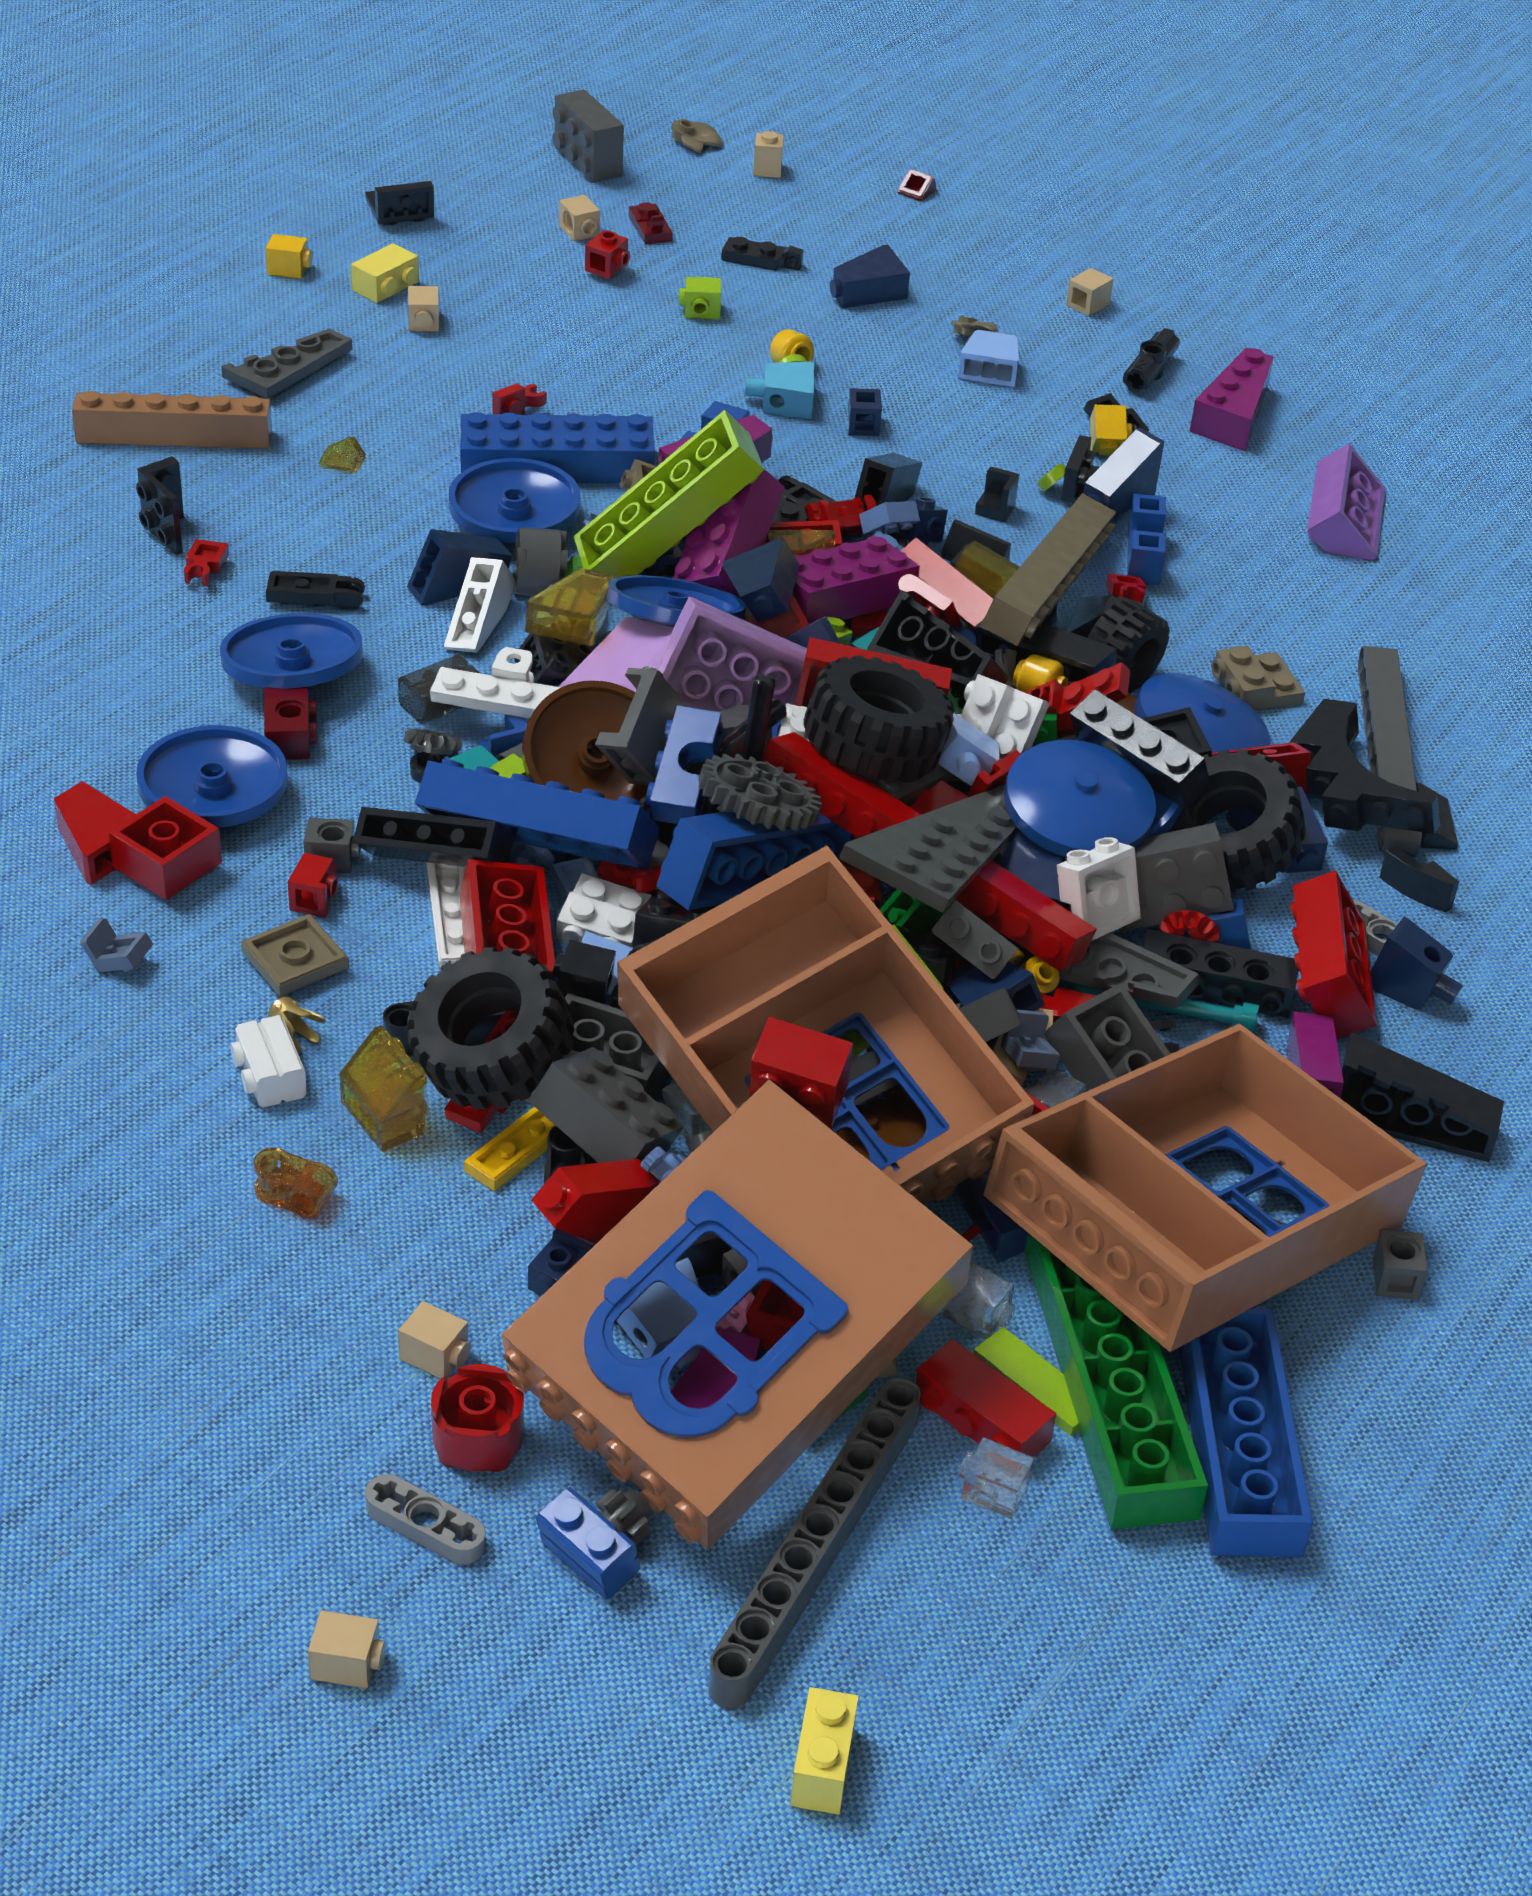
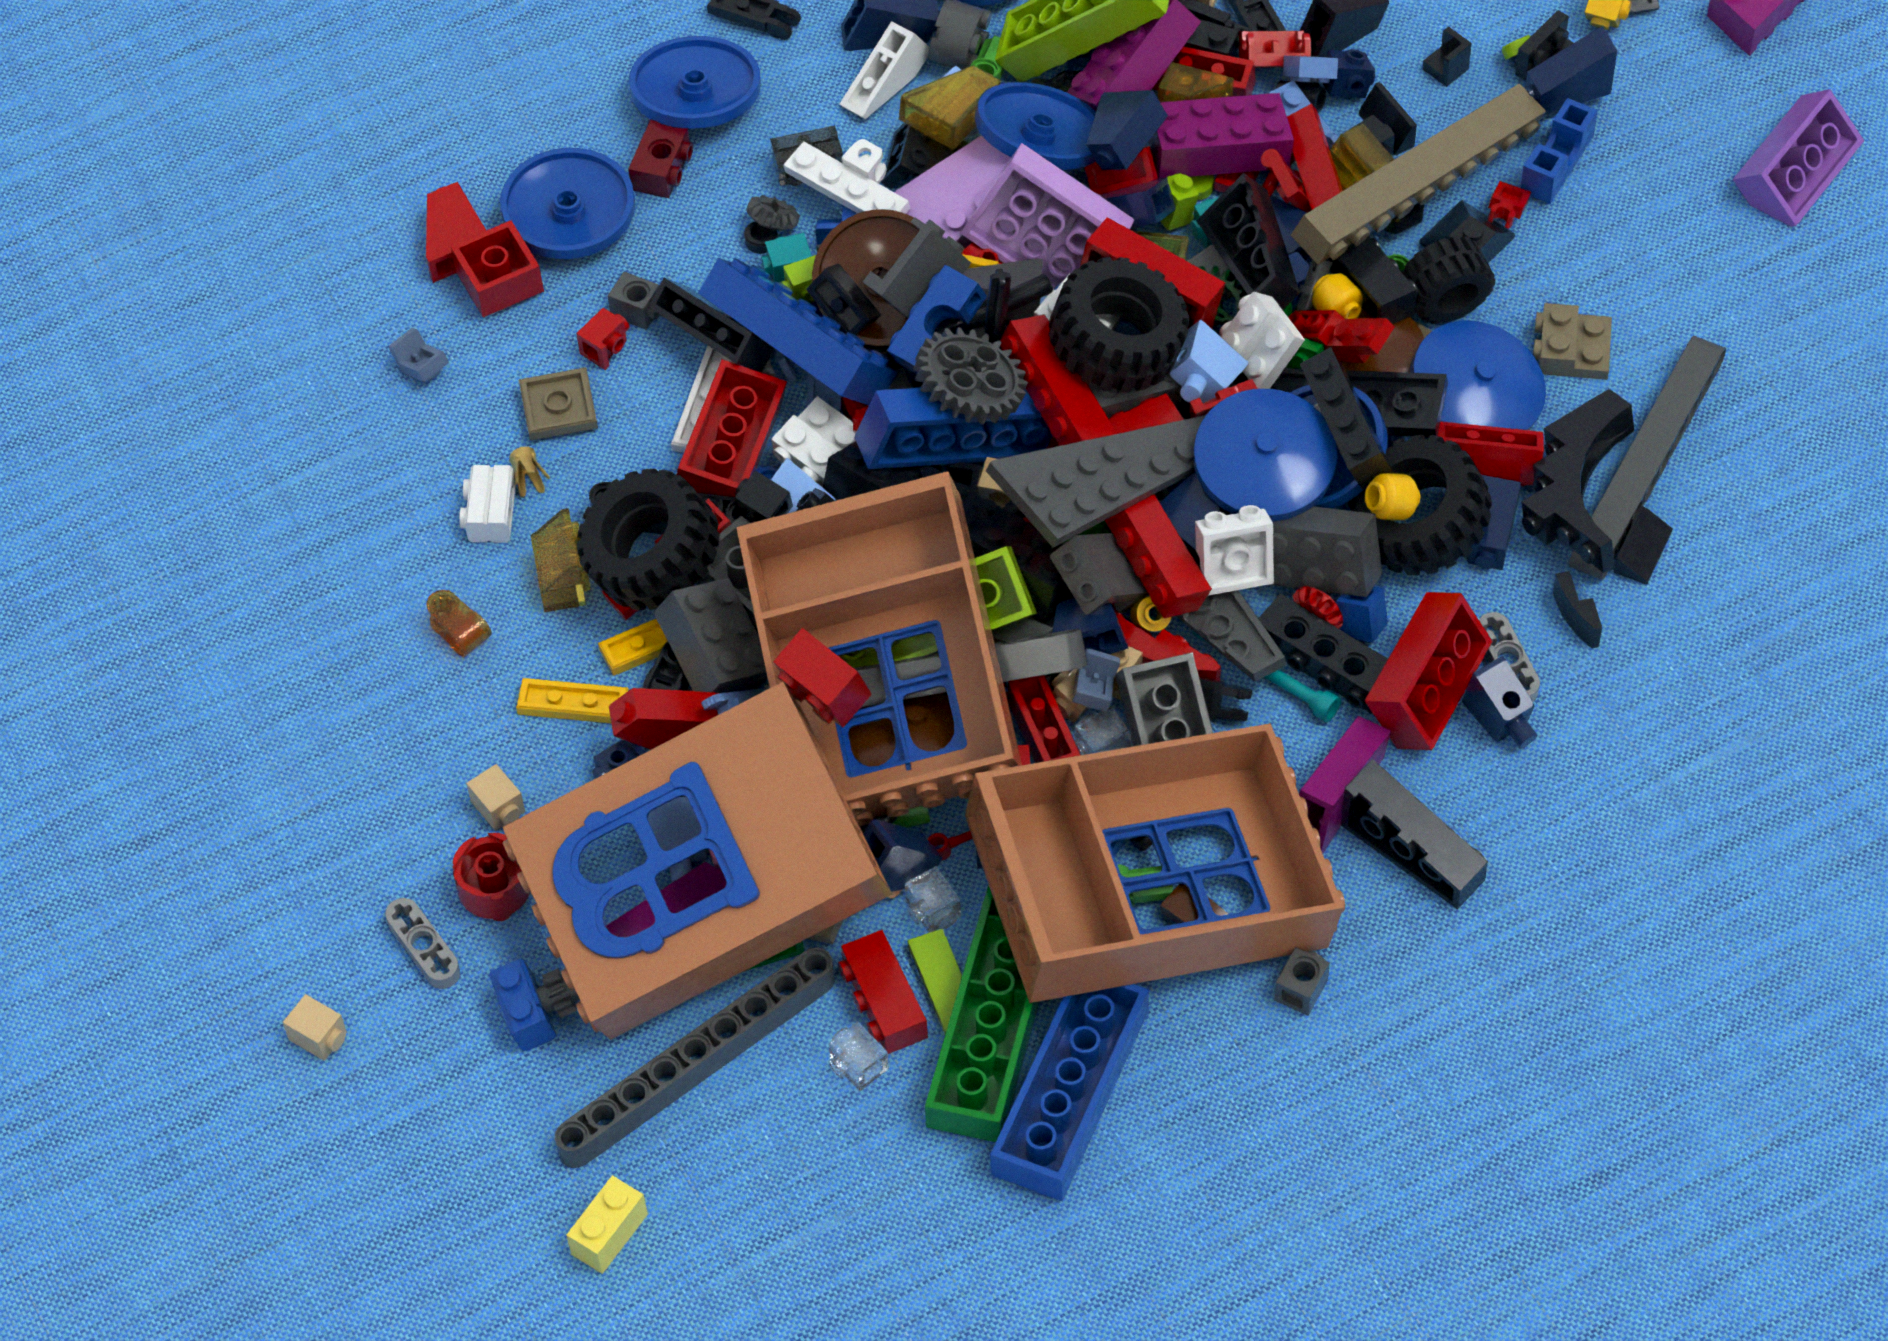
camera: 30 degrees right, 15 degrees up
(464, 1225) = (567, 700): none -> yellow tile
(560, 768) = (843, 300): none -> black slope
(1222, 804) = (1392, 496): none -> yellow head

